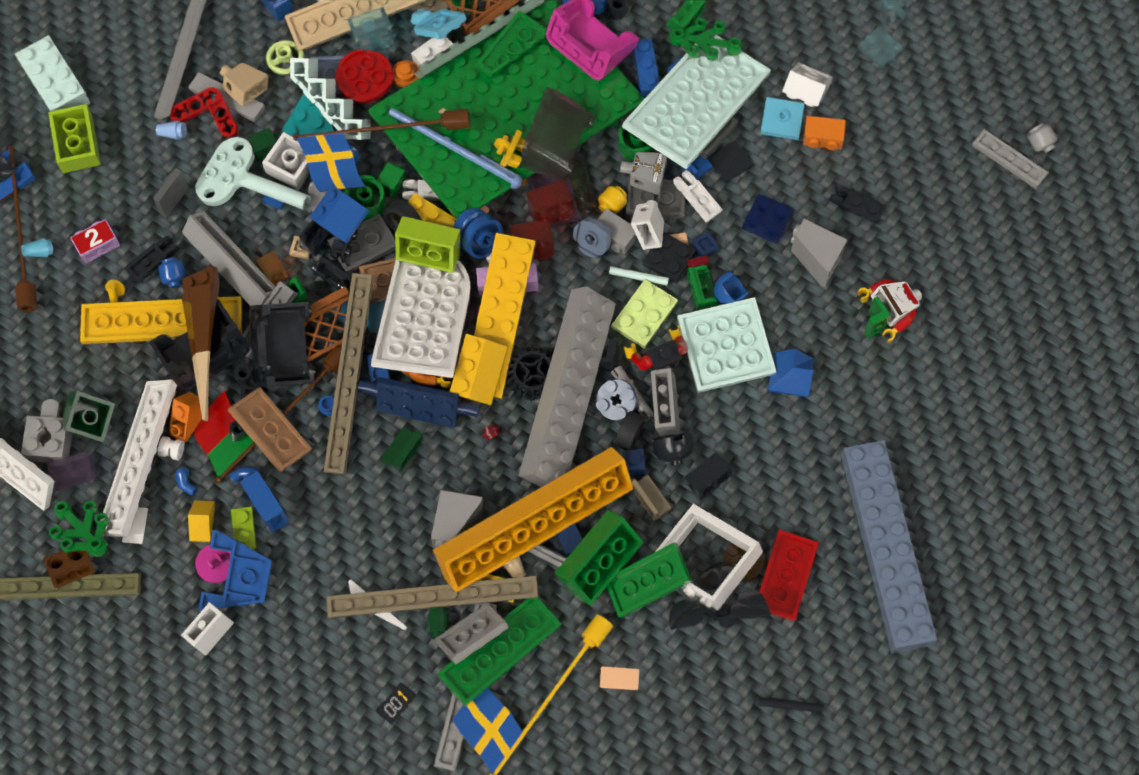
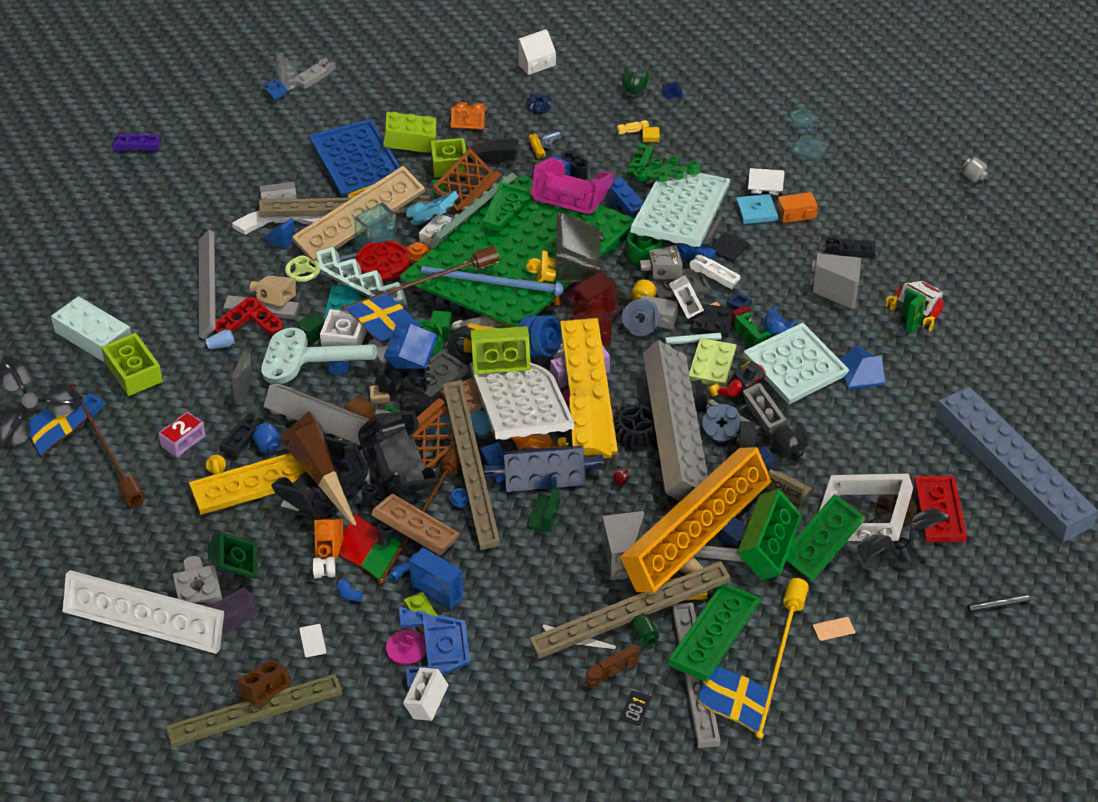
camera: 20 degrees left, 25 degrees down
(37, 248) = (129, 452): medium azure cone -> none
(65, 512) = (286, 655): green plant -> none
(138, 456) = (295, 582): white plate -> none
(201, 521) = (379, 618): yellow slope -> none
(390, 653) = (612, 665): none -> reddish brown hinge
(471, 633) = (684, 621): light grey plate -> none
(708, 475) = (832, 456): black hinge -> none
(767, 218) = (781, 274): clear blue plate -> none
(1010, 158) = (956, 190): light grey tile -> none

